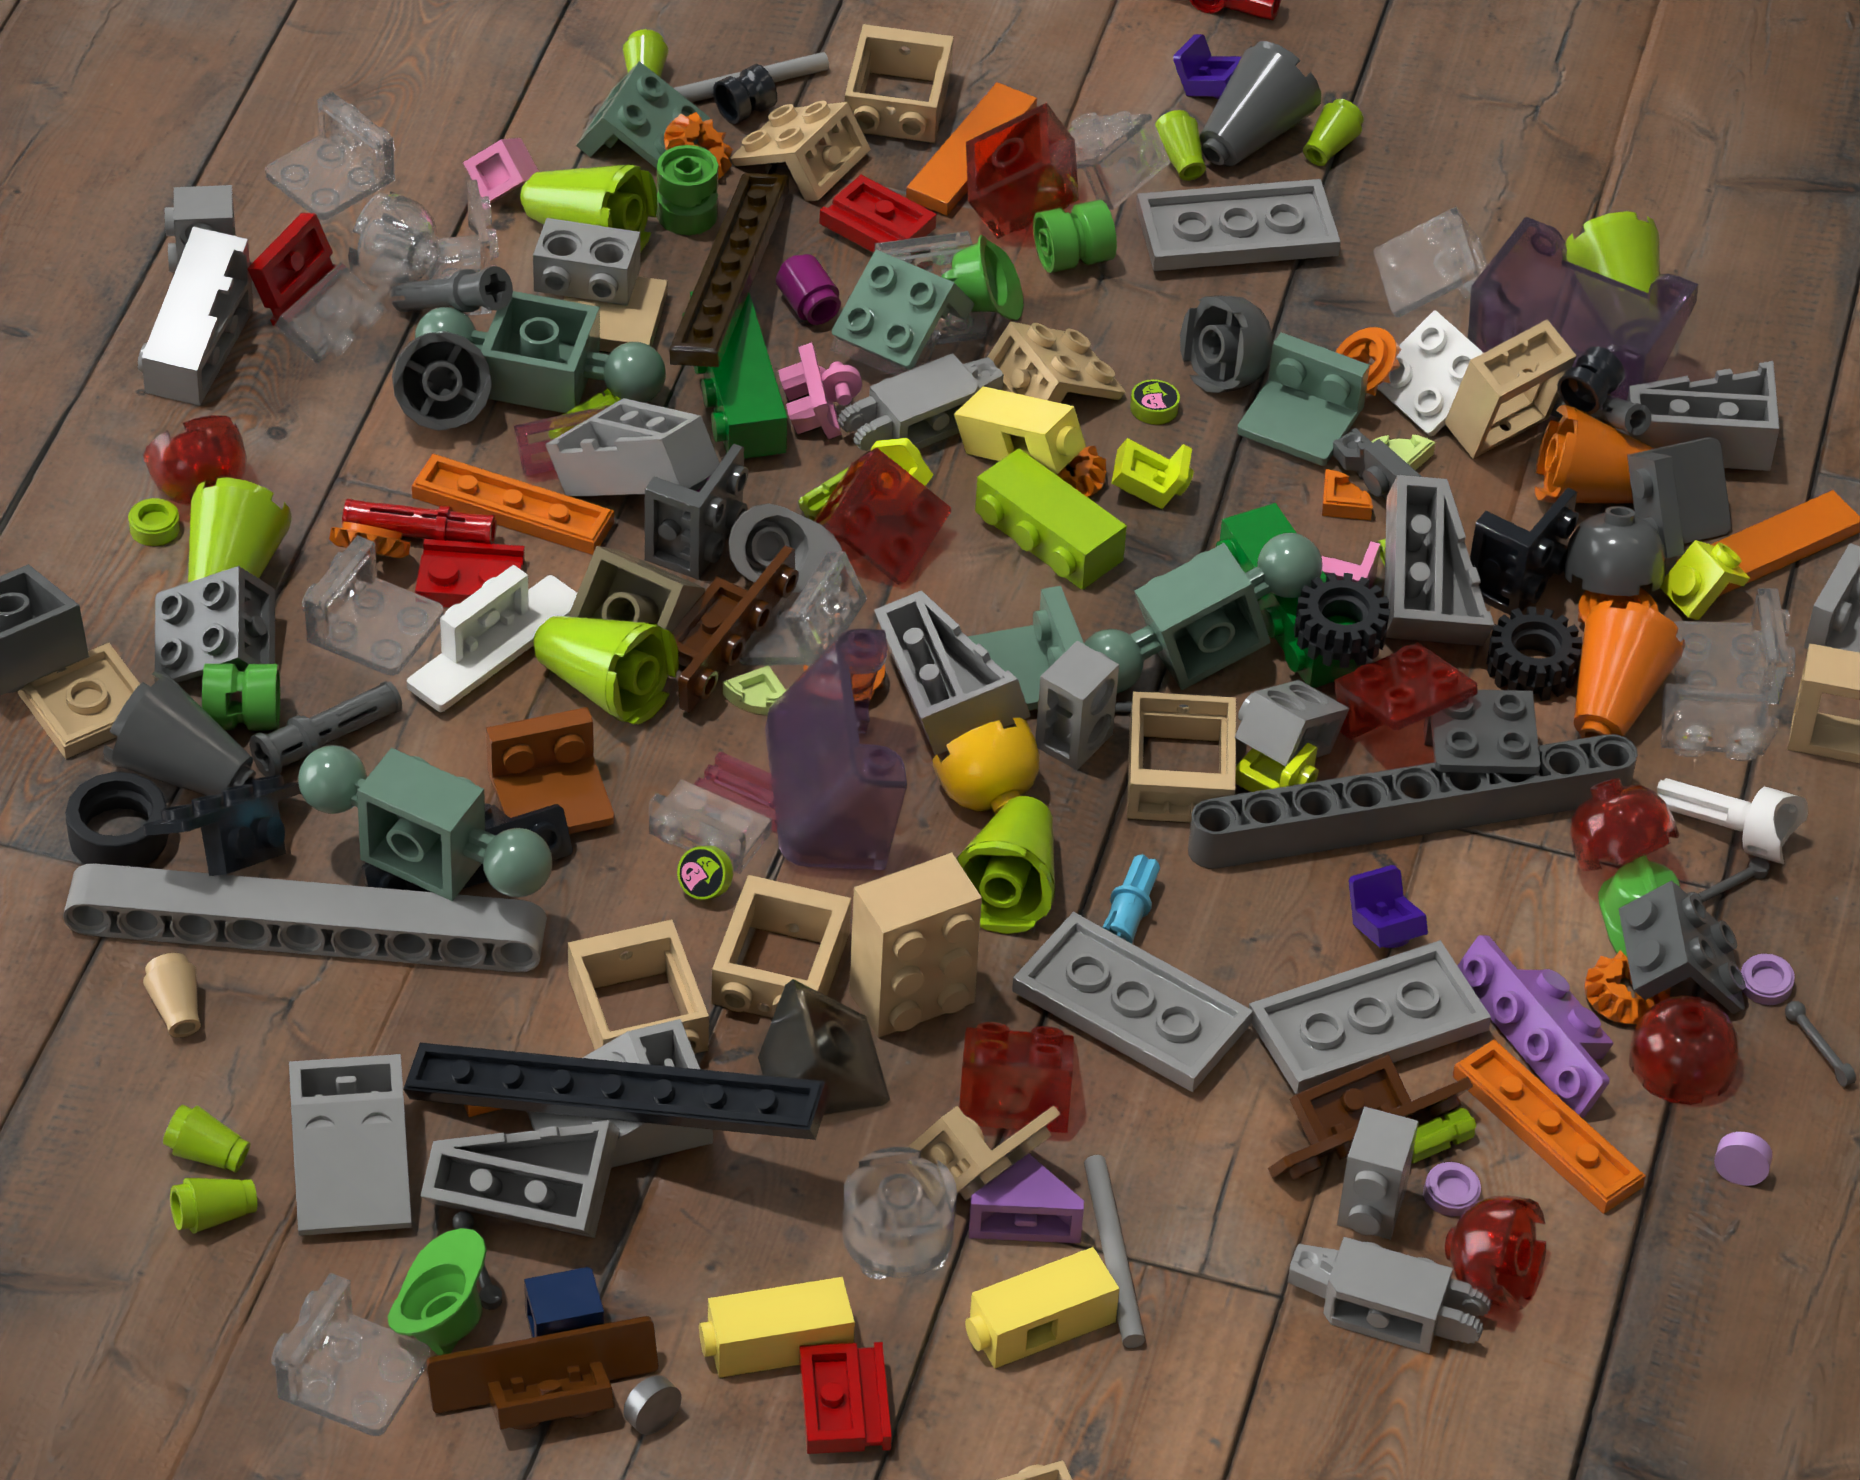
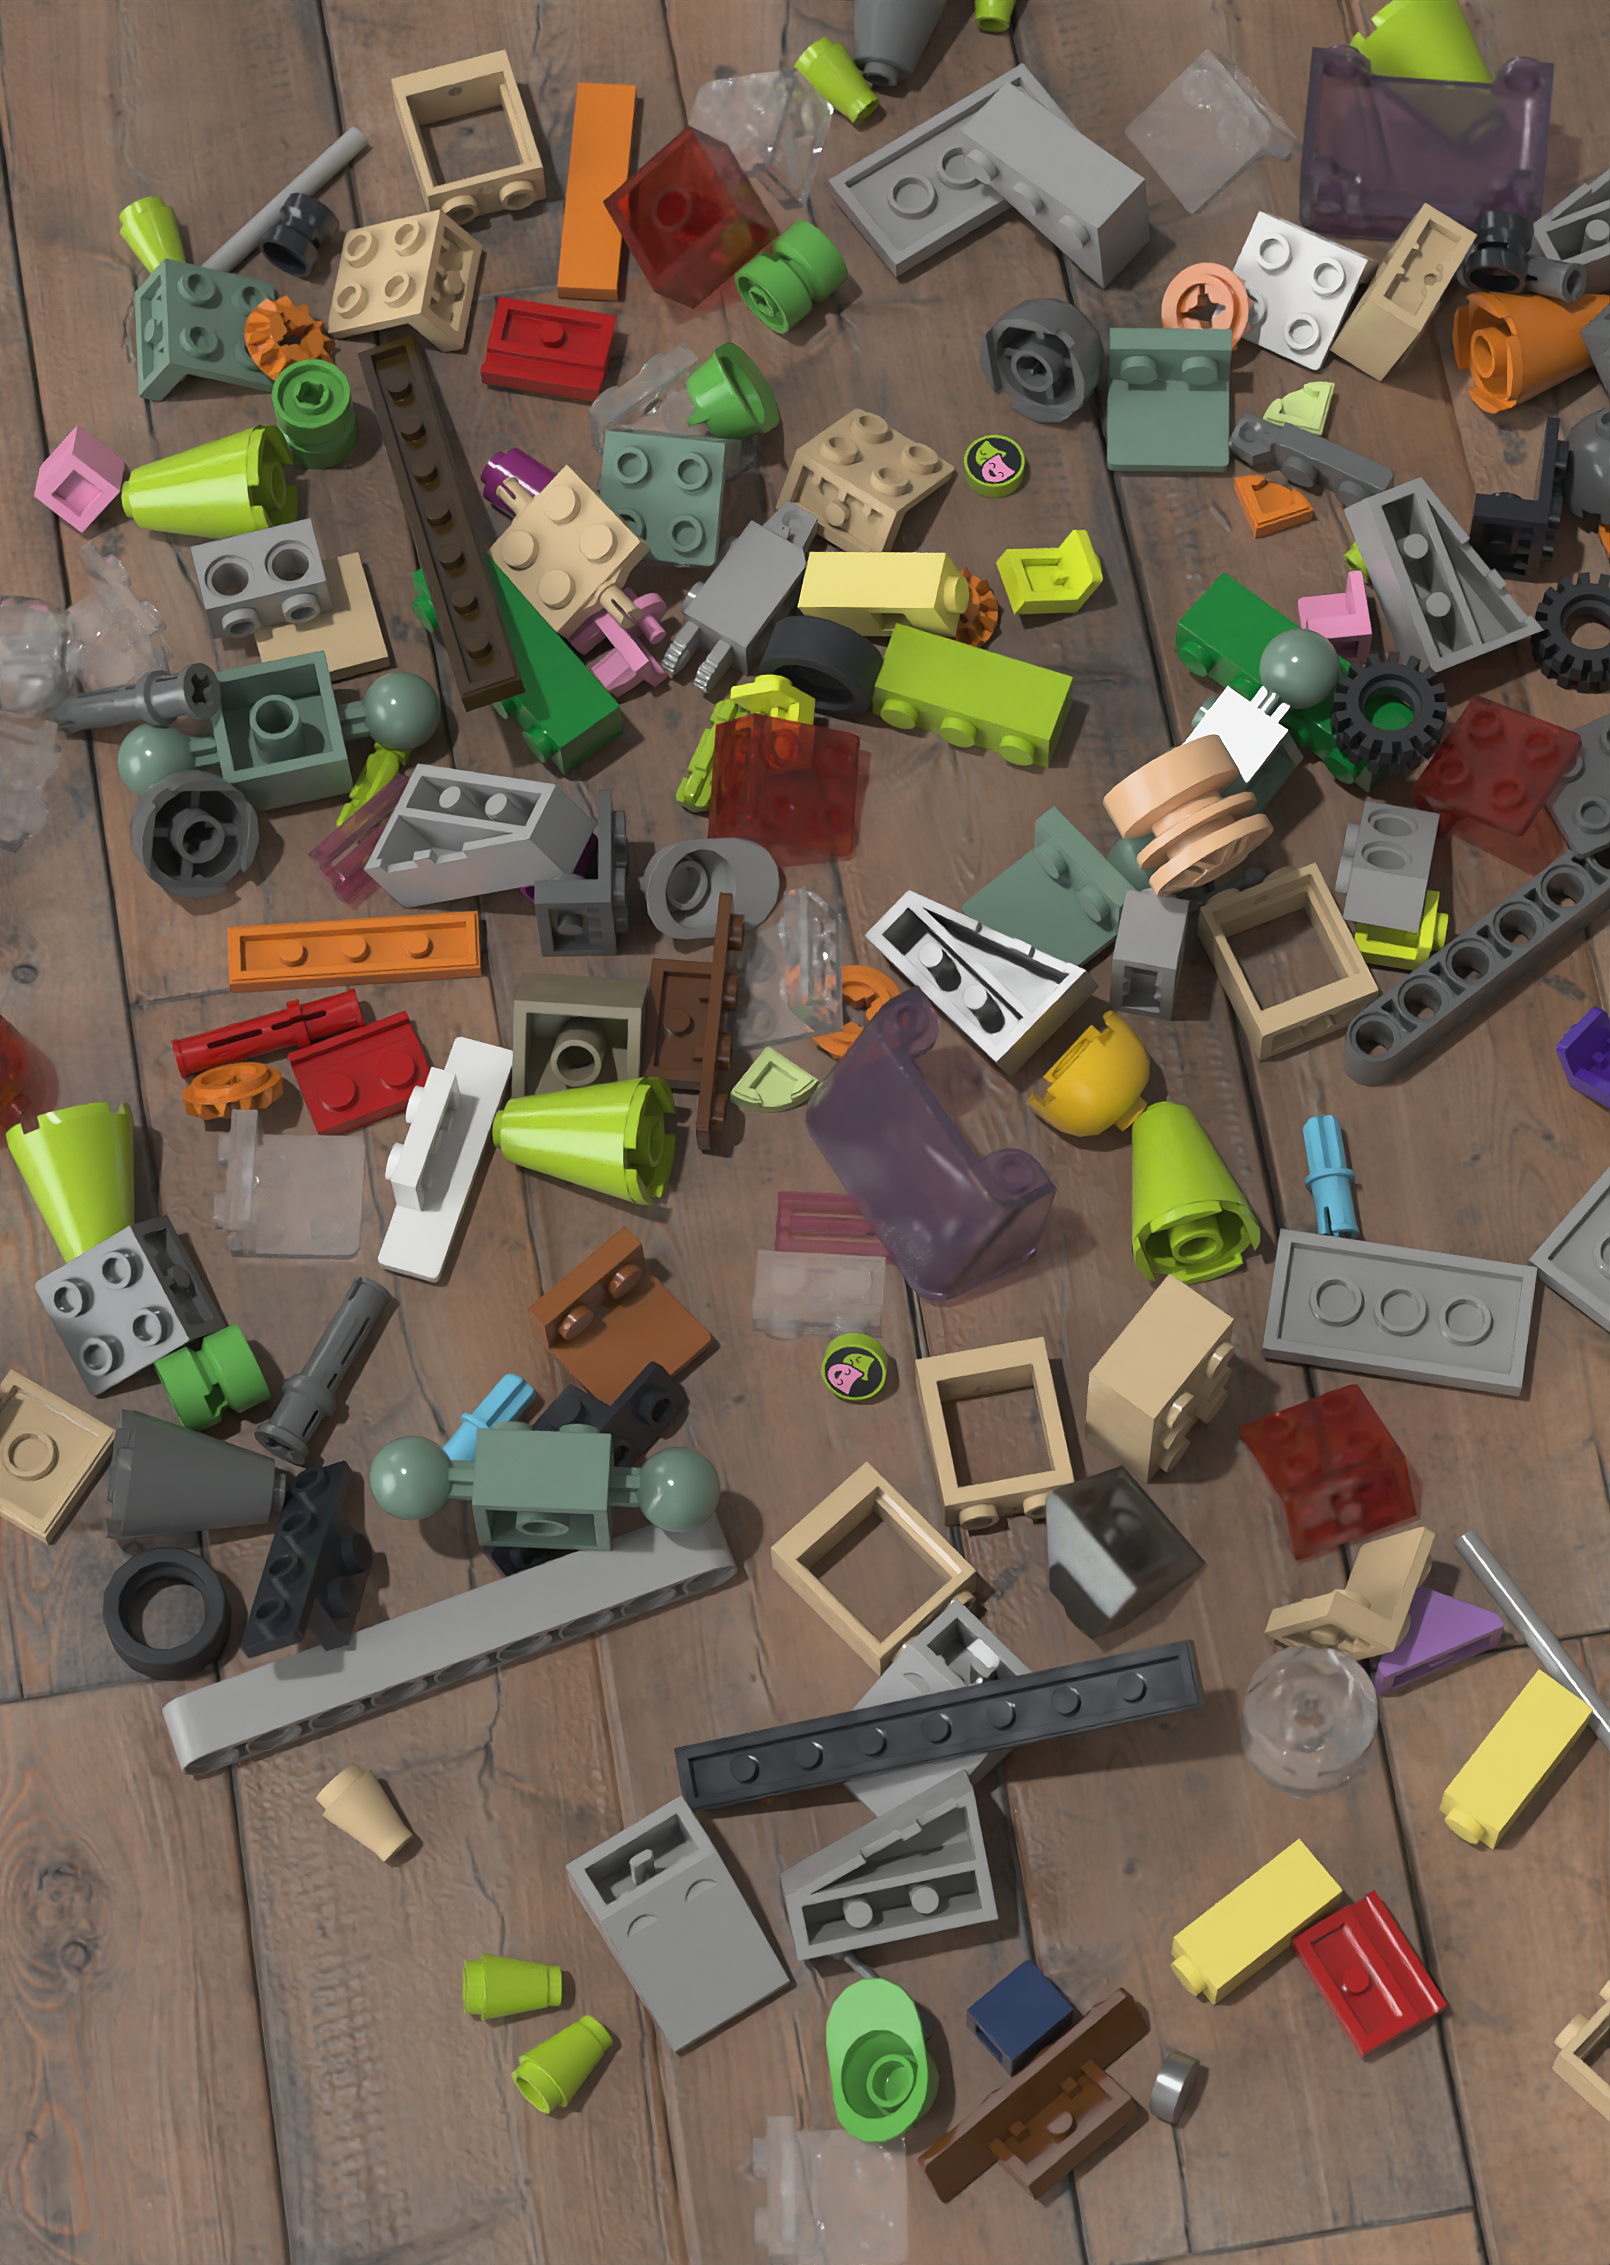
camera: 20 degrees left, 20 degrees up
(808, 318) = (568, 552): none -> tan plate
(963, 442) = (825, 663): none -> black tyre
(1142, 596) = (1182, 806): none -> light nougat wheel
(1300, 245) = (1059, 182): none -> light grey wedge

